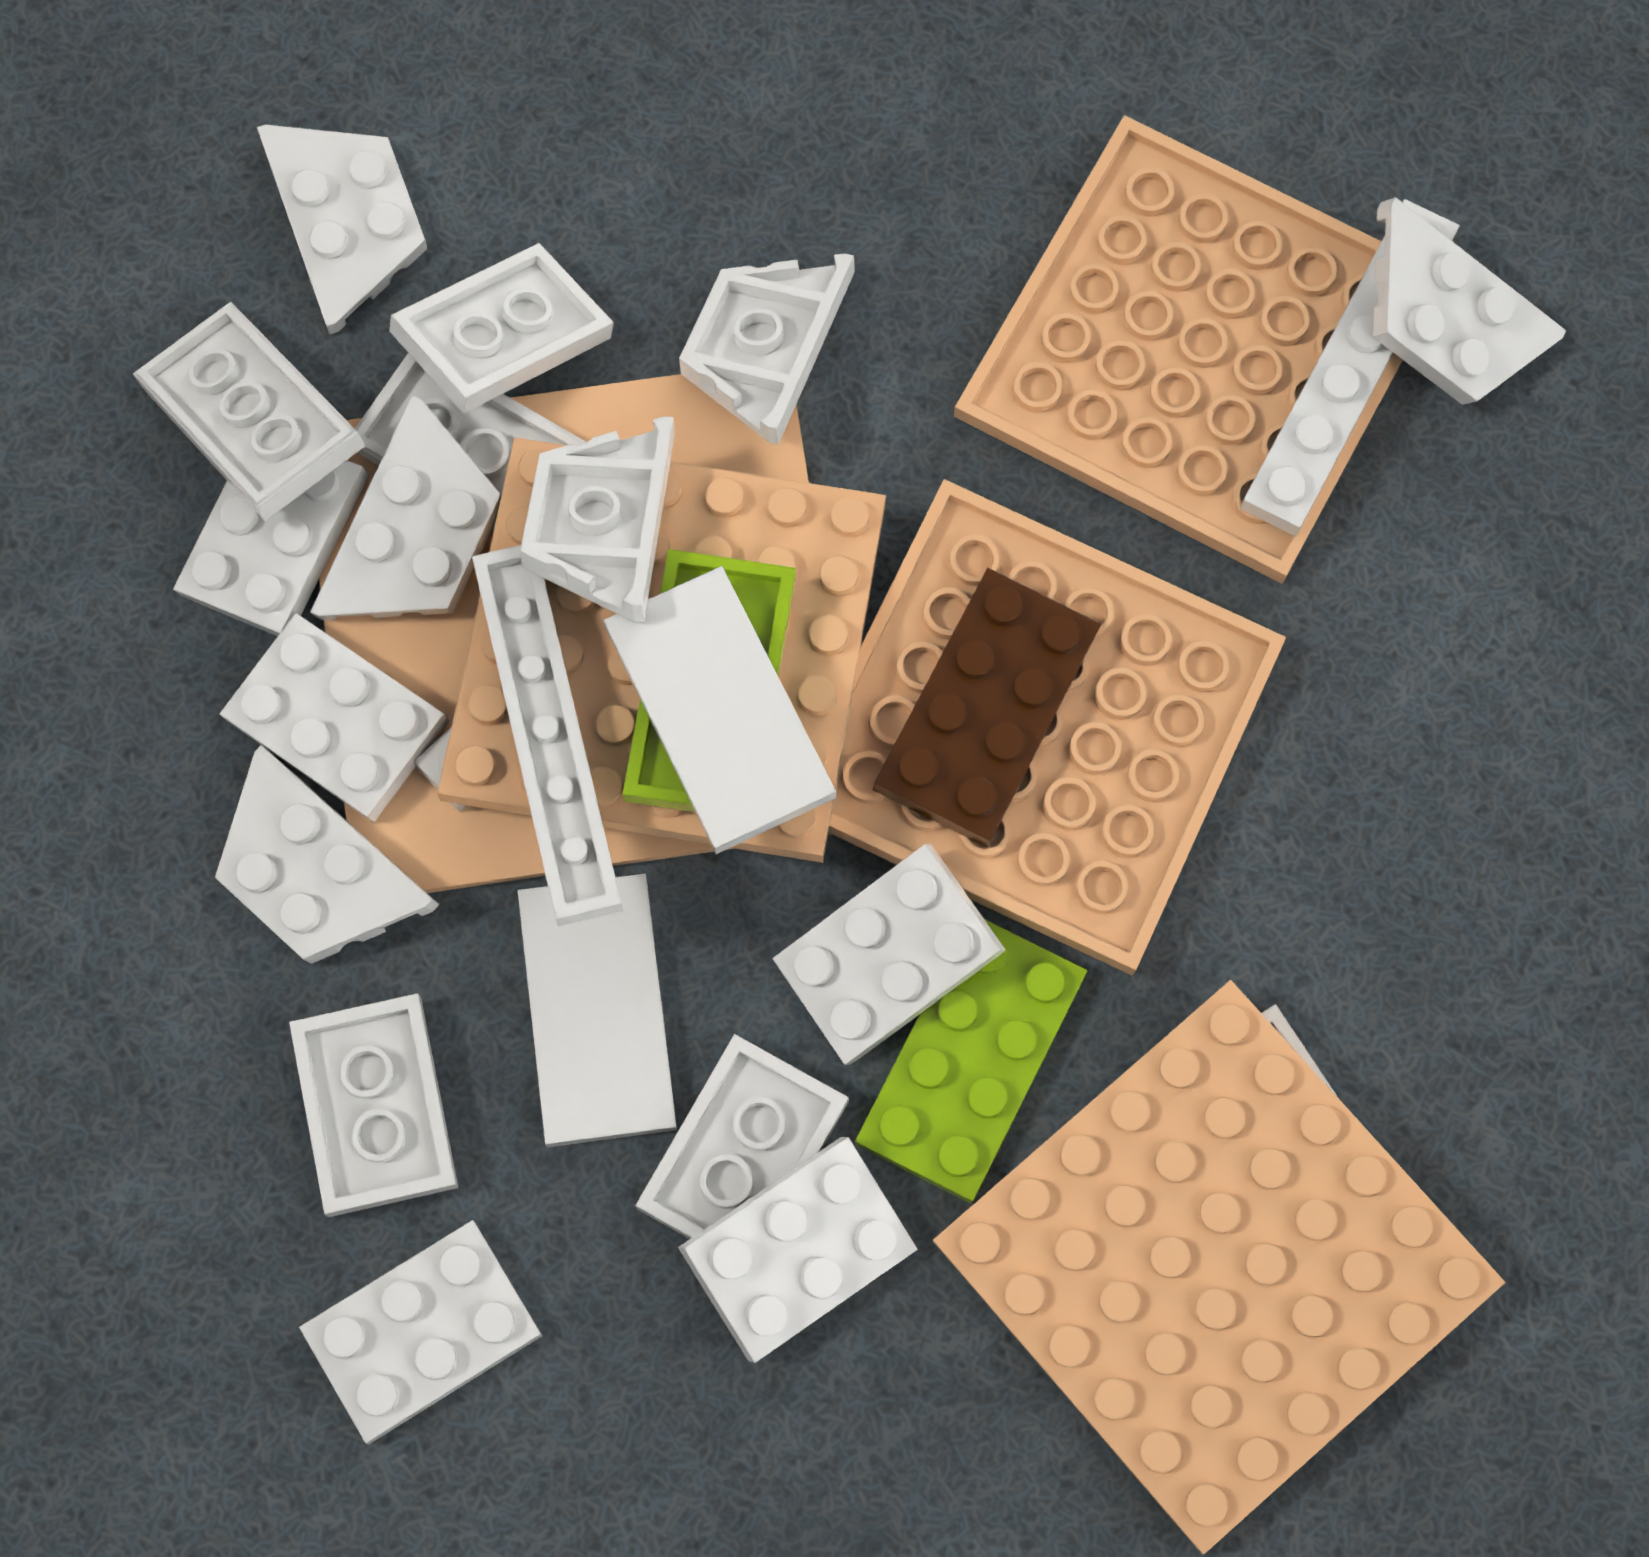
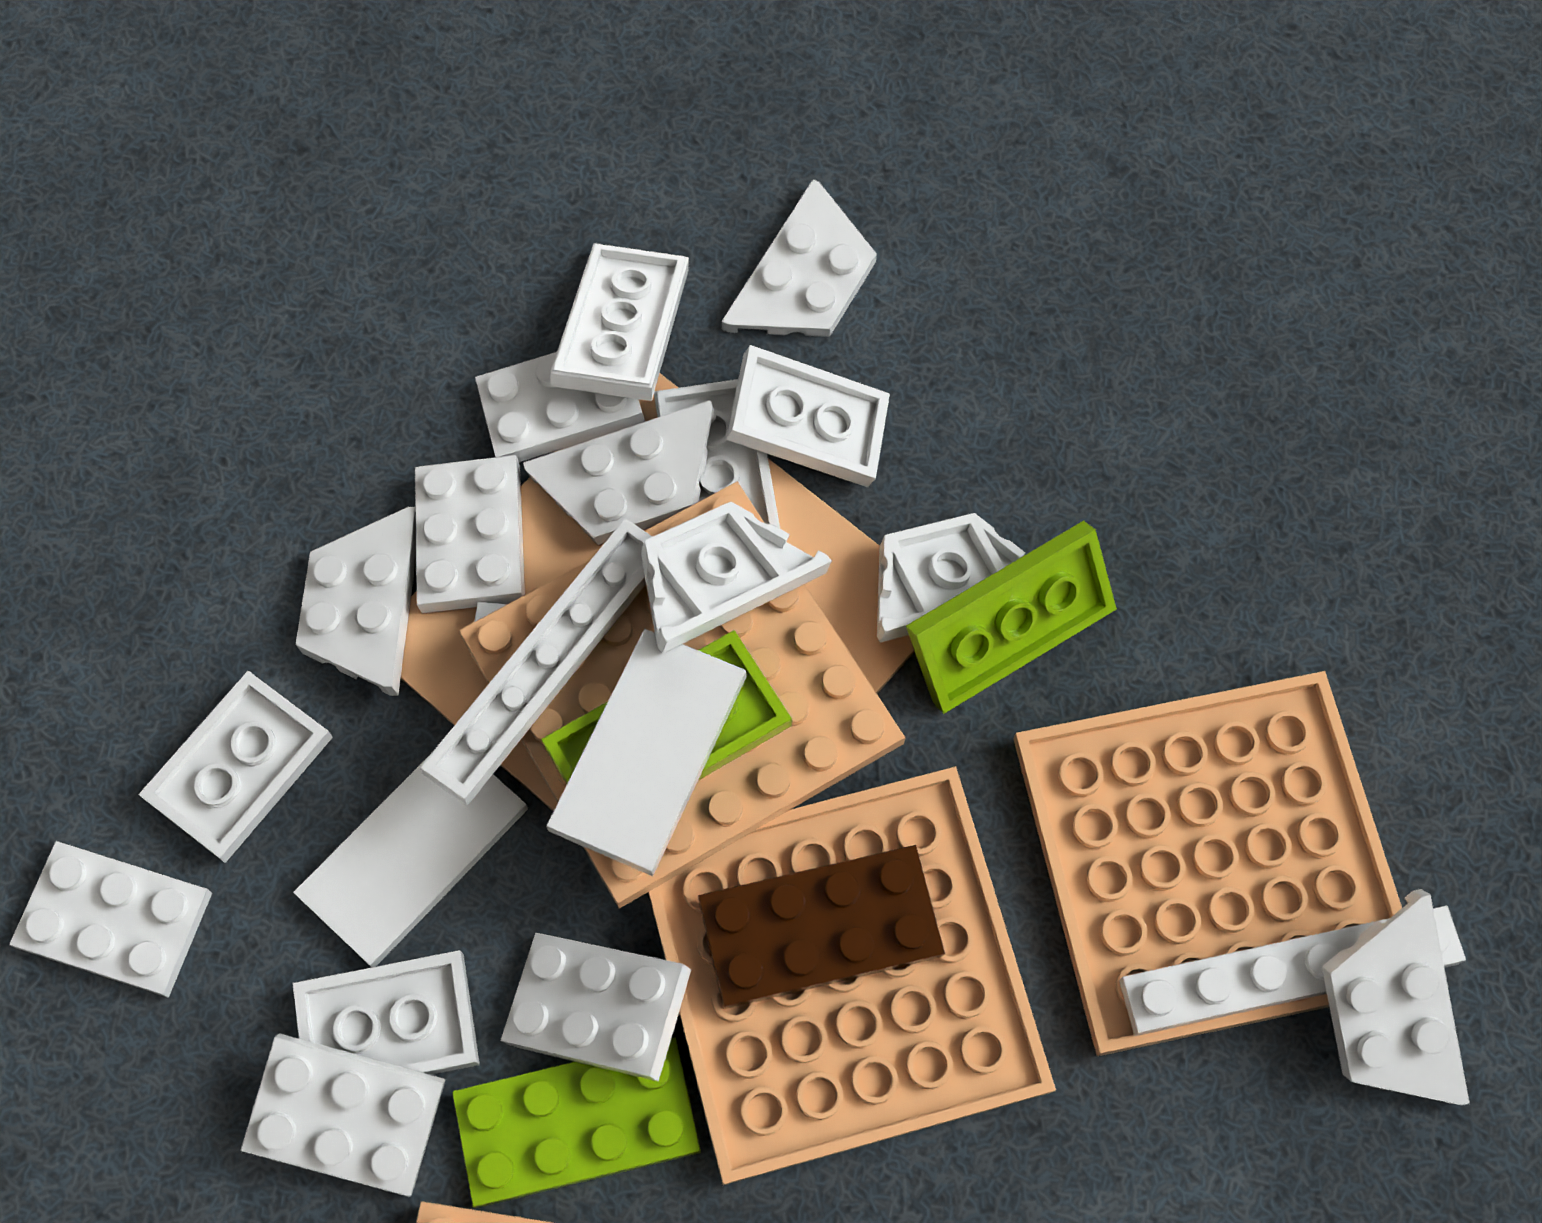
camera: 50 degrees right, 5 degrees down
(852, 317) = (1012, 617): none -> lime plate

